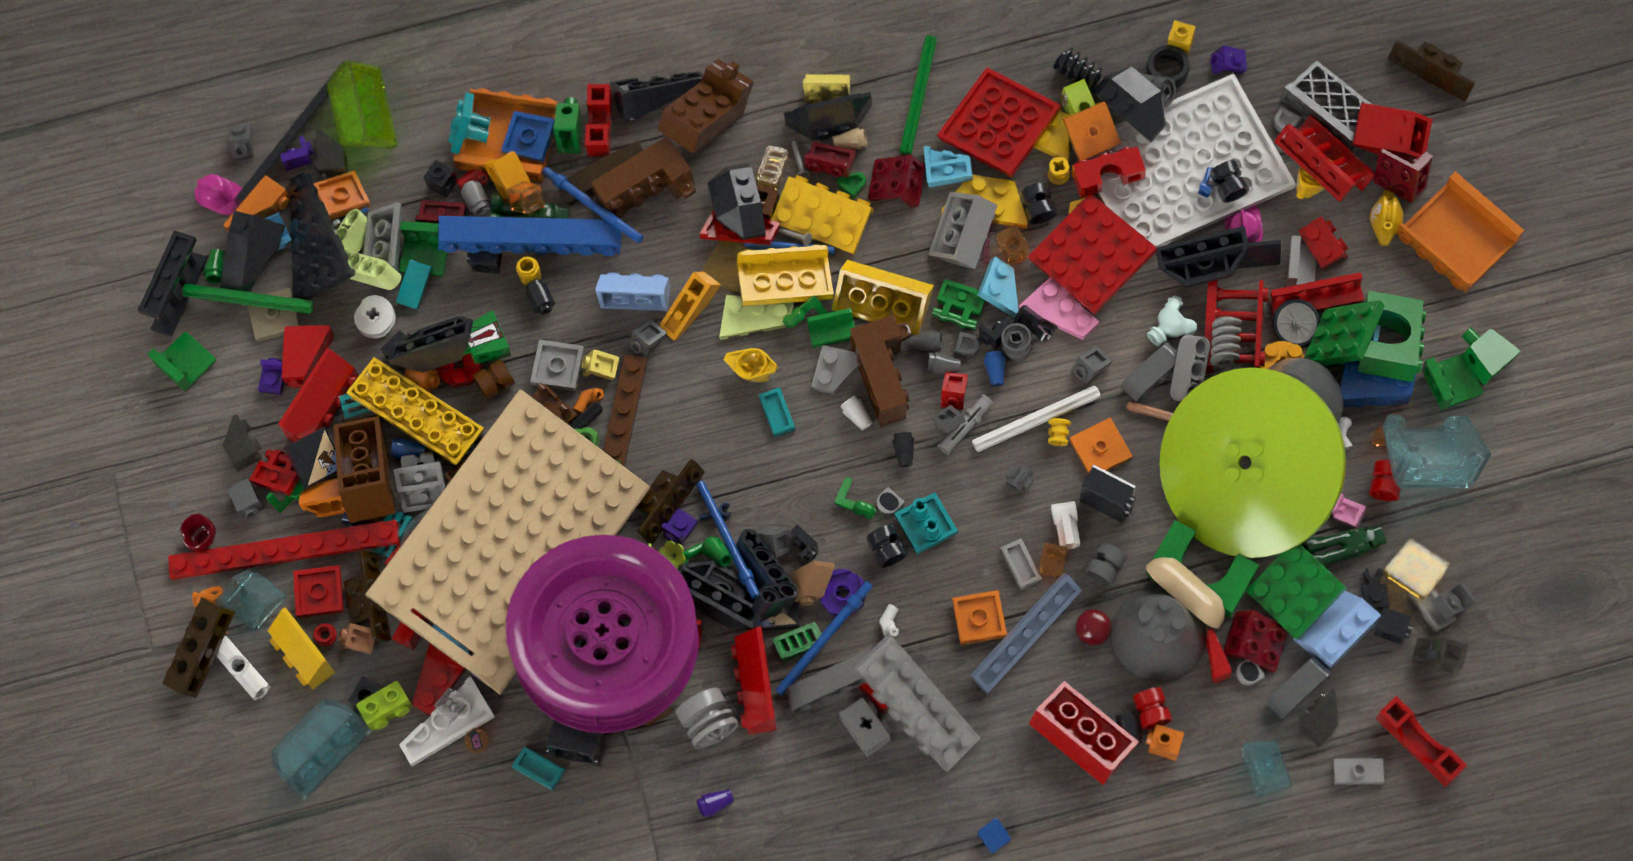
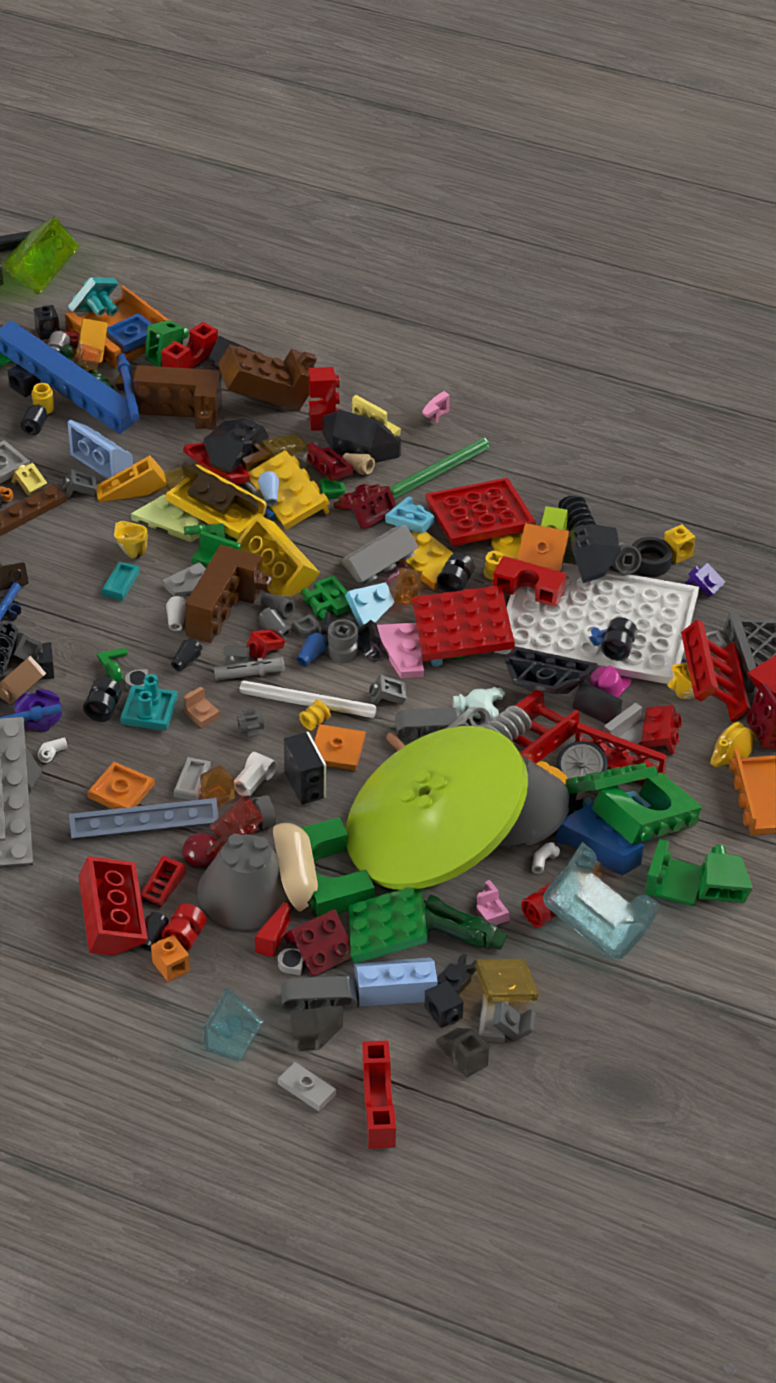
camera: 30 degrees right, 25 degrees down
(774, 98) = (322, 385): none -> red arch
(781, 272) = (214, 493): none -> dark brown bracket
(816, 229) = (269, 487): none -> light blue cone
(862, 37) = (437, 406): none -> bright pink slope
(965, 493) = (199, 708): none -> nougat bracket
(1083, 679) = (165, 863): none -> red slope
(1114, 592) = (238, 819): none -> clear red bracket

